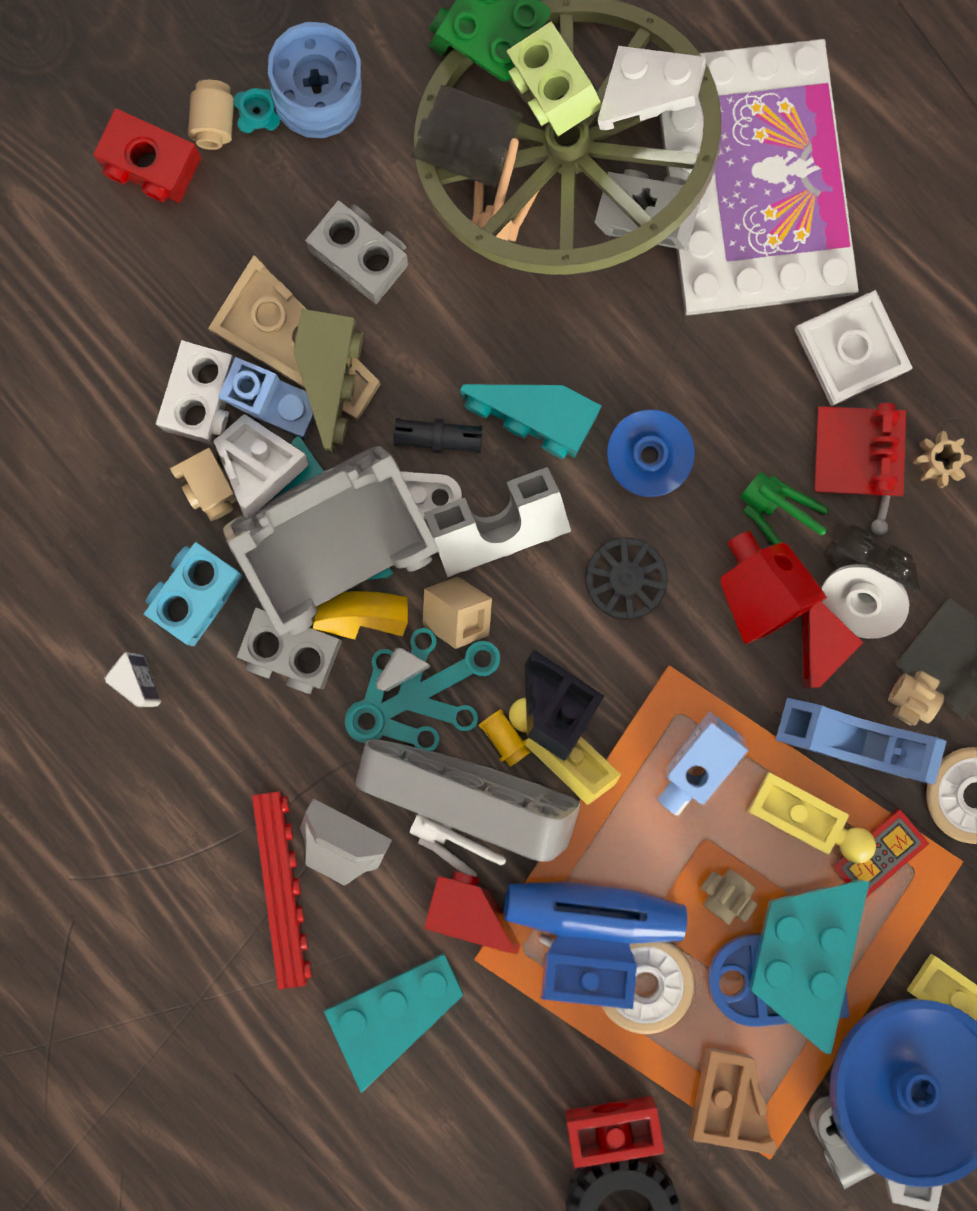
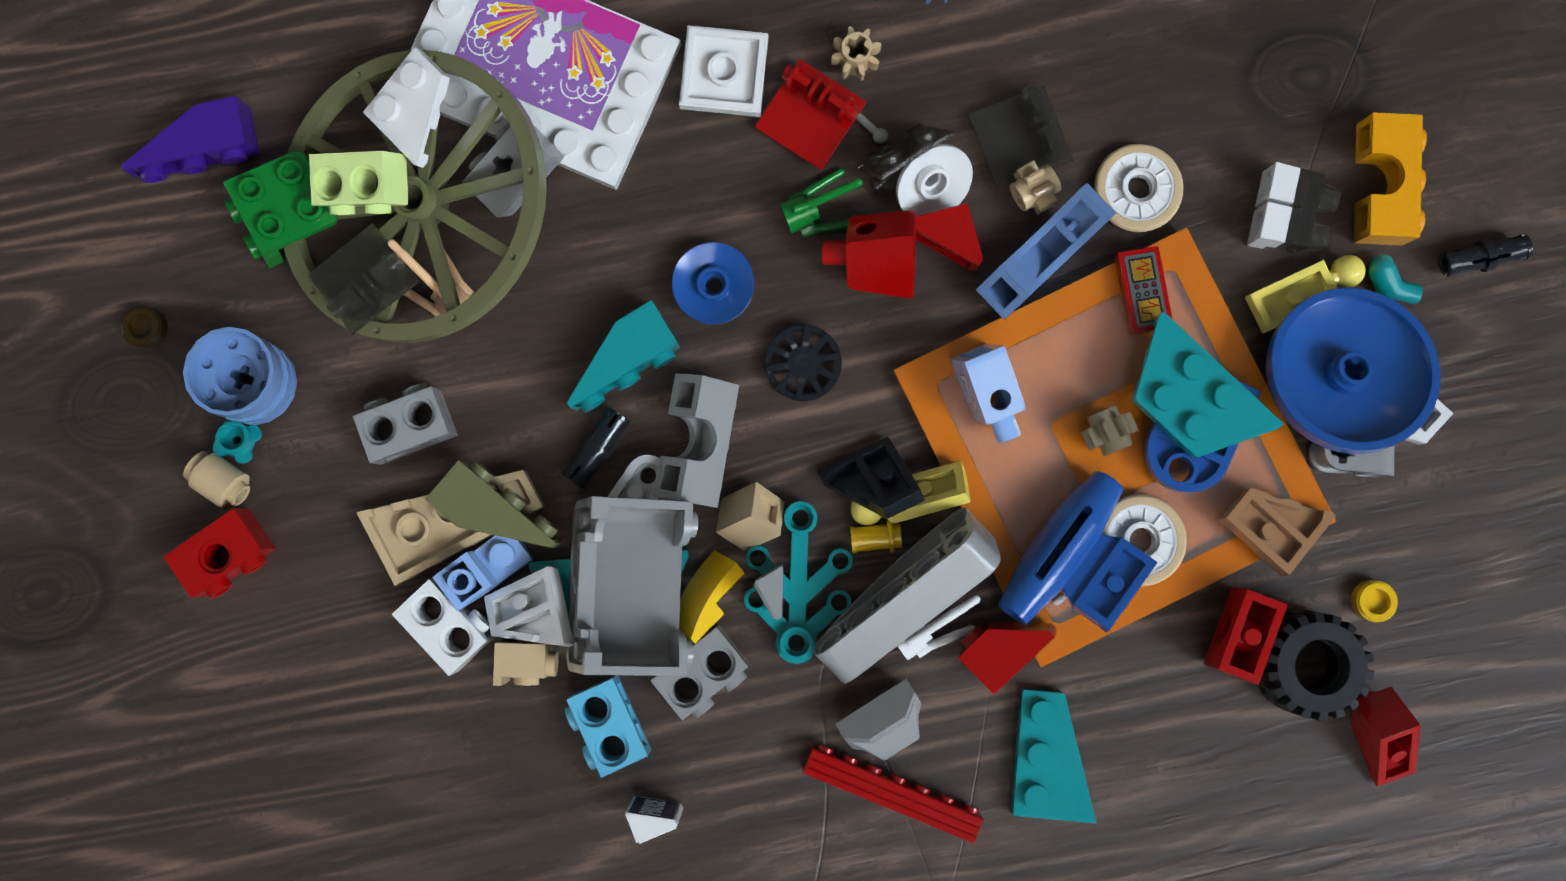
camera: 60 degrees left, 0 degrees up
(810, 819) = (1085, 329): light yellow plate -> none

